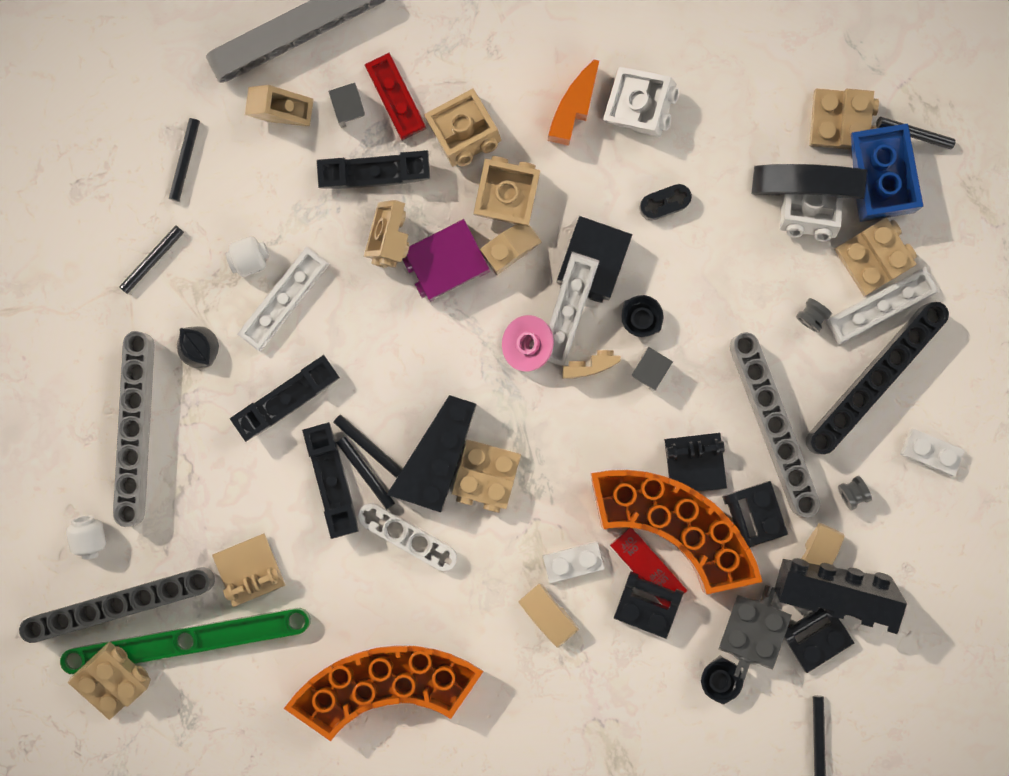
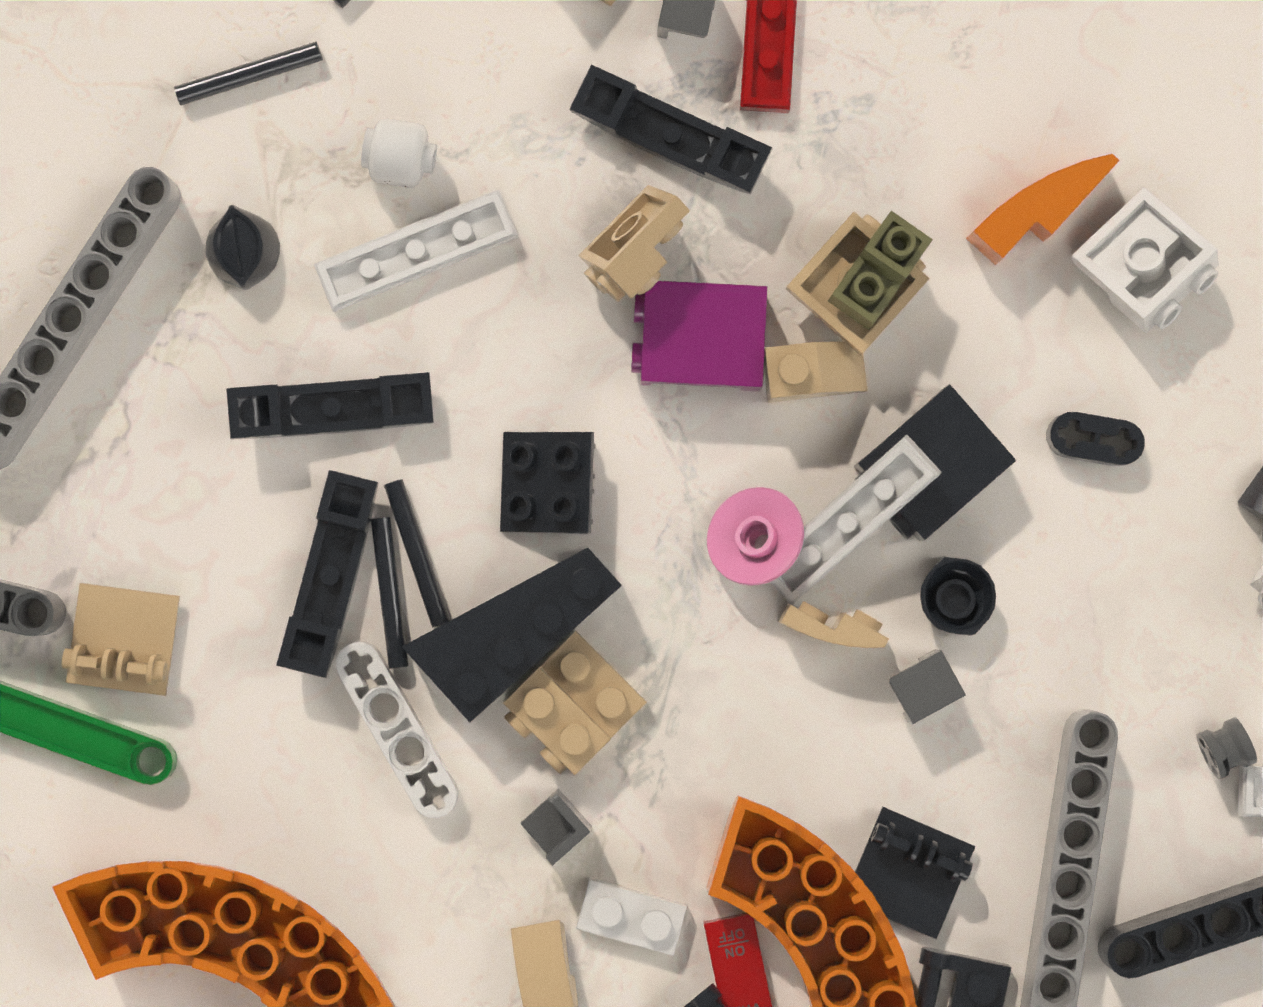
camera: 30 degrees right, 0 degrees up
(411, 375) = (547, 482): none -> black hinge
(463, 128) = (847, 145): tan plate -> none
(511, 539) = (556, 826): none -> dark grey panel
(513, 179) = (880, 270): none -> olive slope

